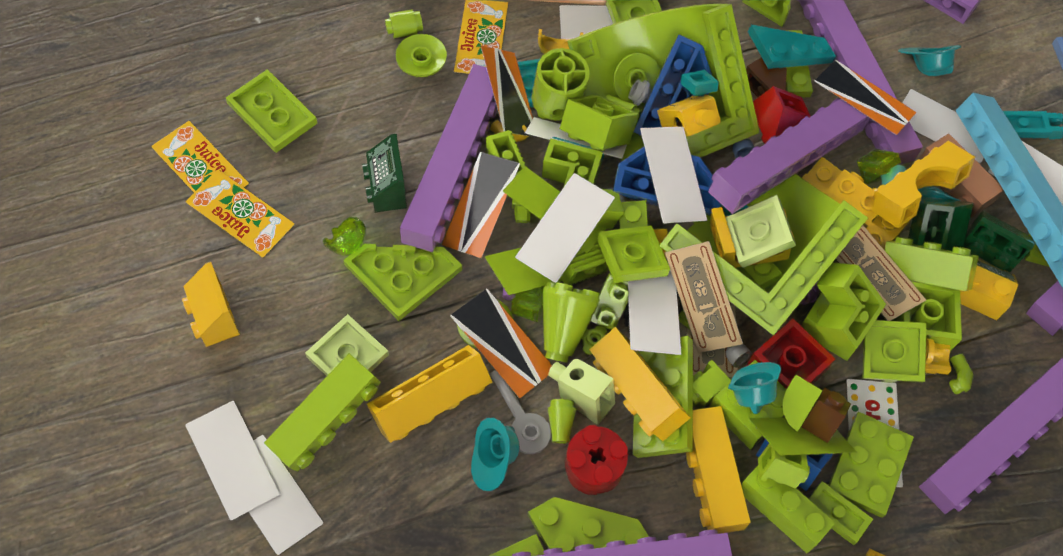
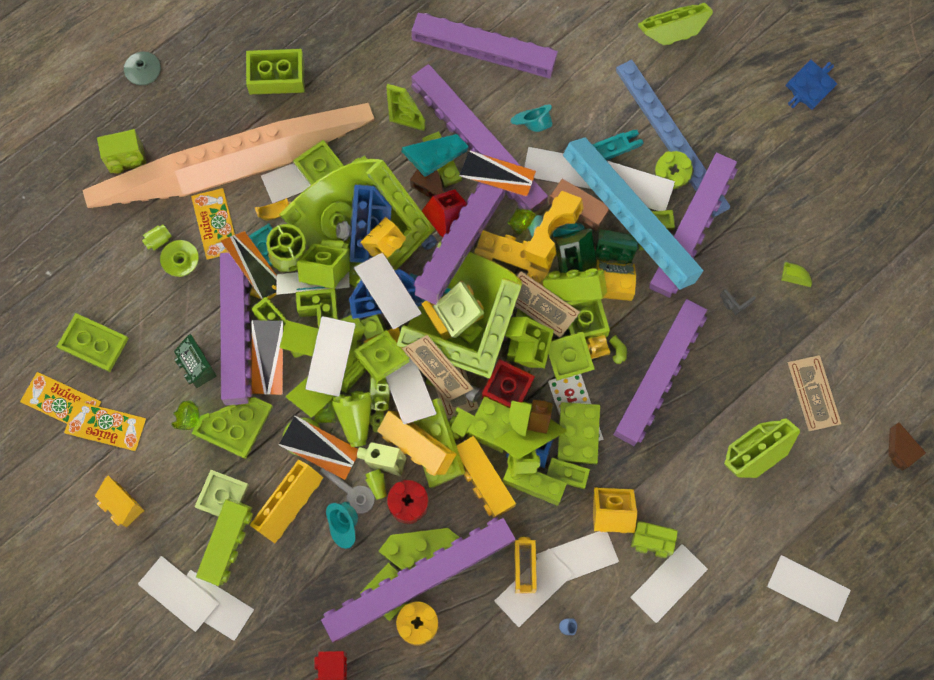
camera: 20 degrees left, 10 degrees up
(699, 82) = (381, 214): teal plate -> none
(756, 385) = (488, 416): teal piece -> none

